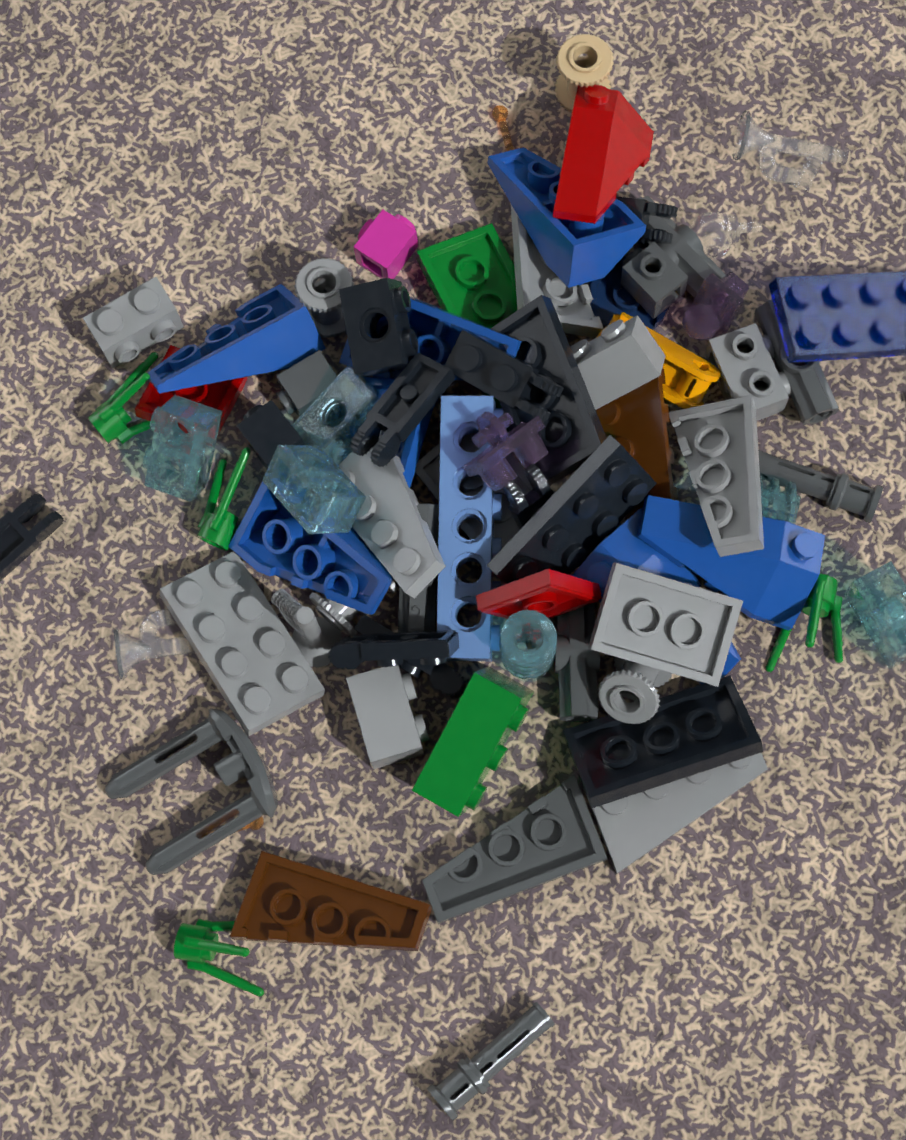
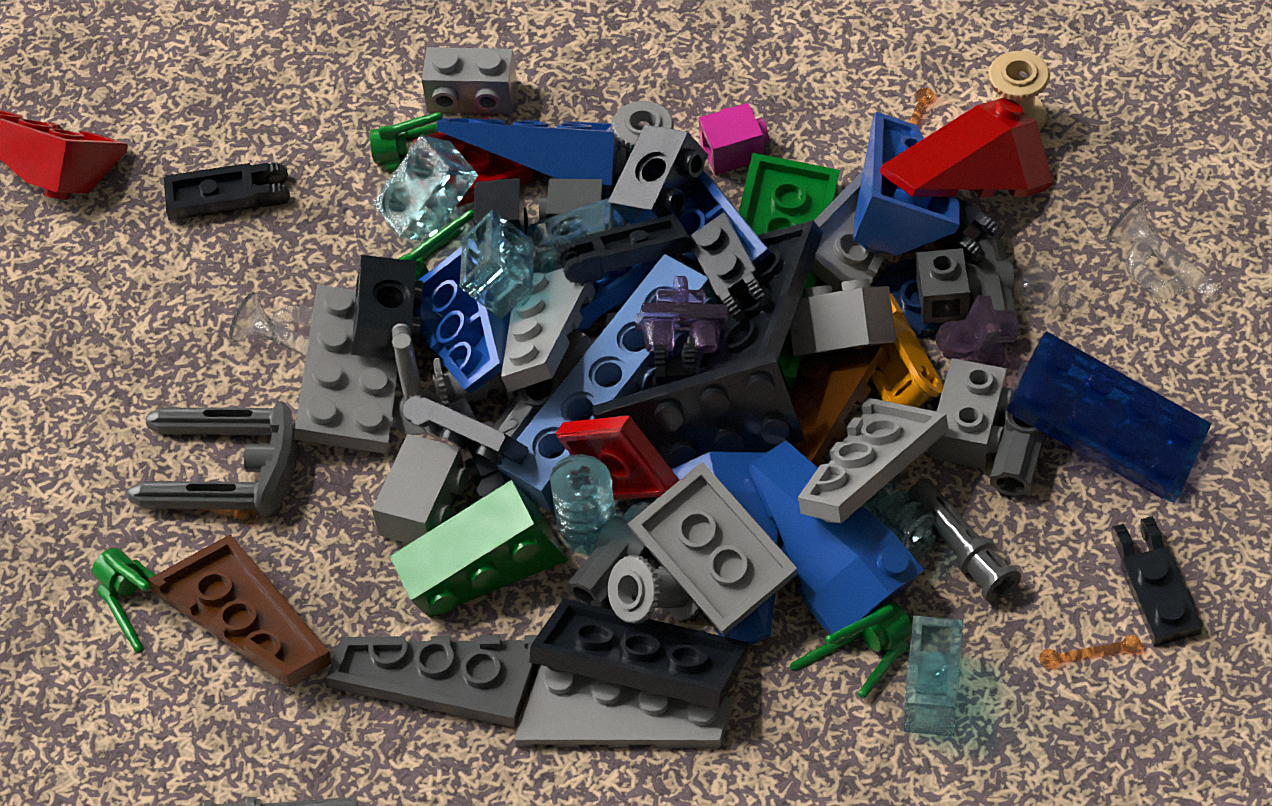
camera: 35 degrees right, 20 degrees down
(232, 553) = (383, 299): none -> black brick

